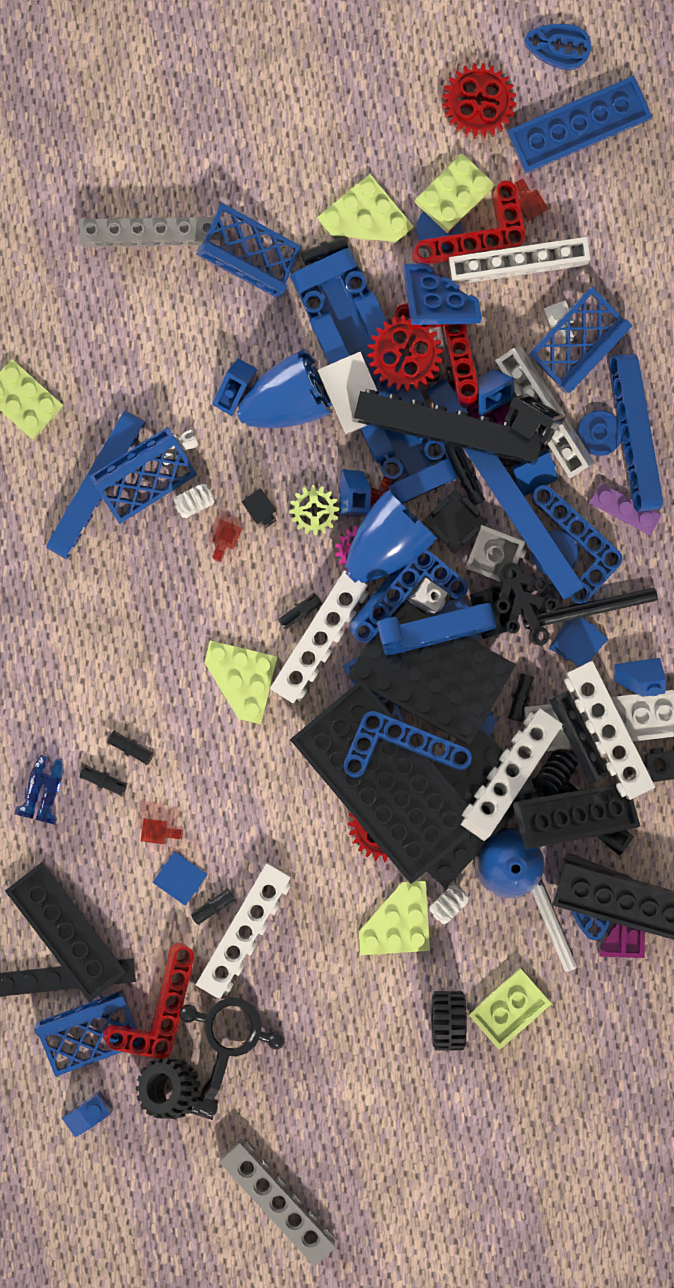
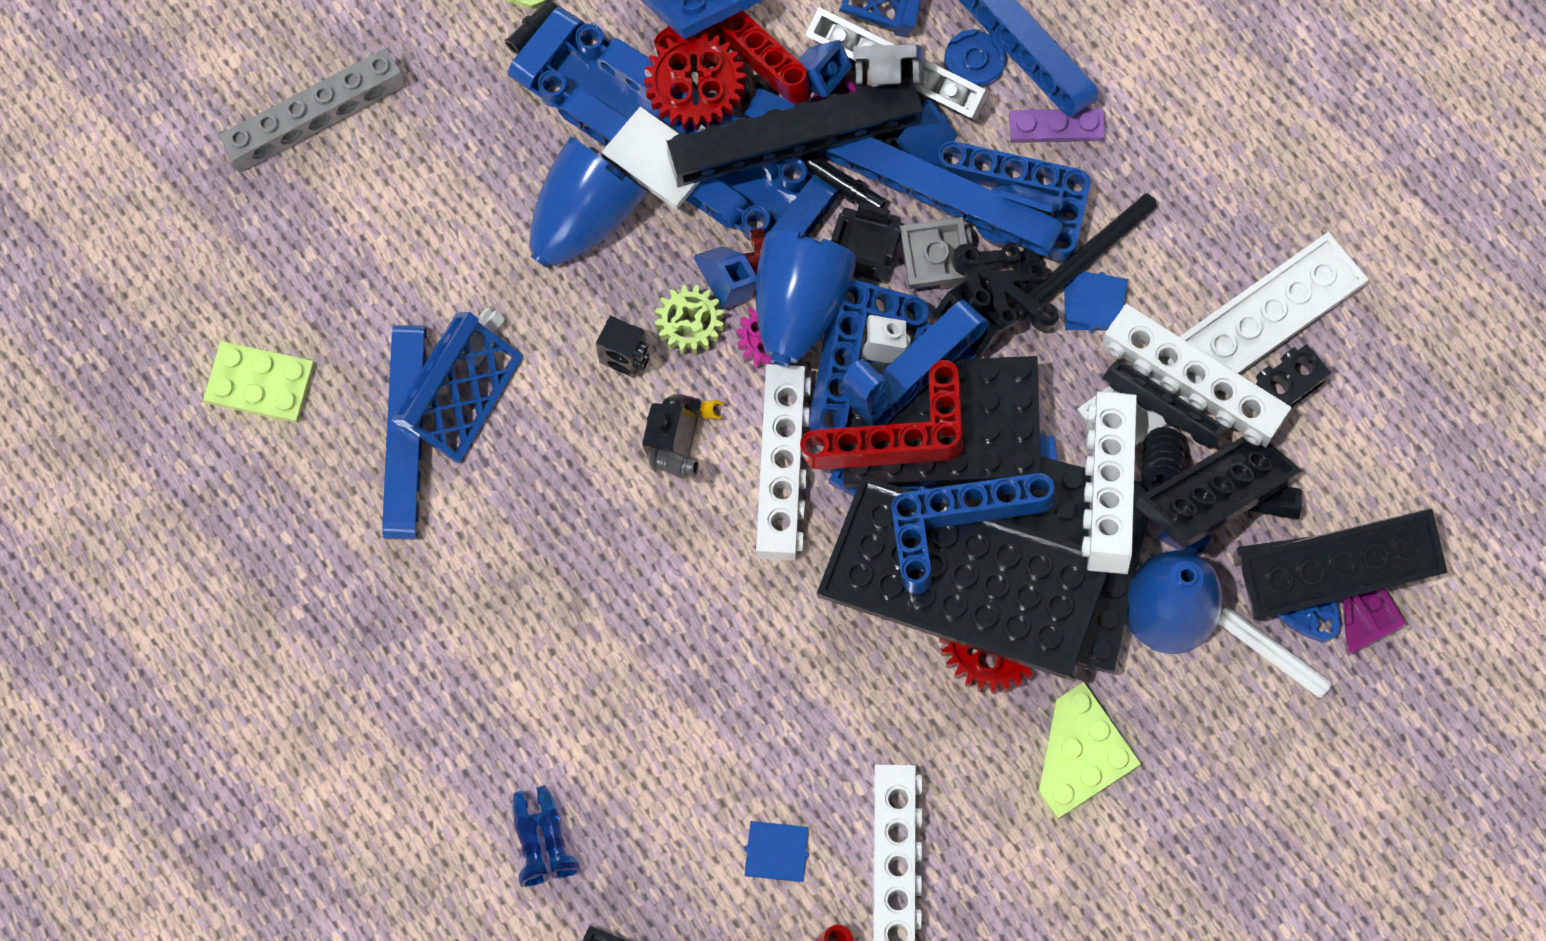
camera: 25 degrees left, 15 degrees down
(103, 780) = (611, 781): black pin -> none
(130, 747) = (623, 722): black pin -> none
(156, 831) = (713, 807): clear red plate -> none
(194, 500) = (536, 382): white gear -> none
(212, 906) = (838, 861): black axle -> none
(226, 537) = (600, 409): clear red plate -> none
(234, 386) = (511, 231): blue slope -> none
(242, 677) = (714, 563): yellowish green plate -> none
(246, 269) = (443, 88): blue fence -> none
(259, 583) = (671, 433): none -> black torso
(300, 611) = (740, 444): black axle -> none
(396, 670) = (896, 434): none -> red beam
(448, 1020) = (1217, 830): black tyre -> none
(449, 904) = (1130, 690): white gear -> none
(509, 1008) = (1282, 780): yellowish green plate -> none
(521, 697) = (1066, 401): black pin -> none
(575, 557) = (1032, 197): none -> blue piece
(641, 676) = (1194, 297): blue slope -> none

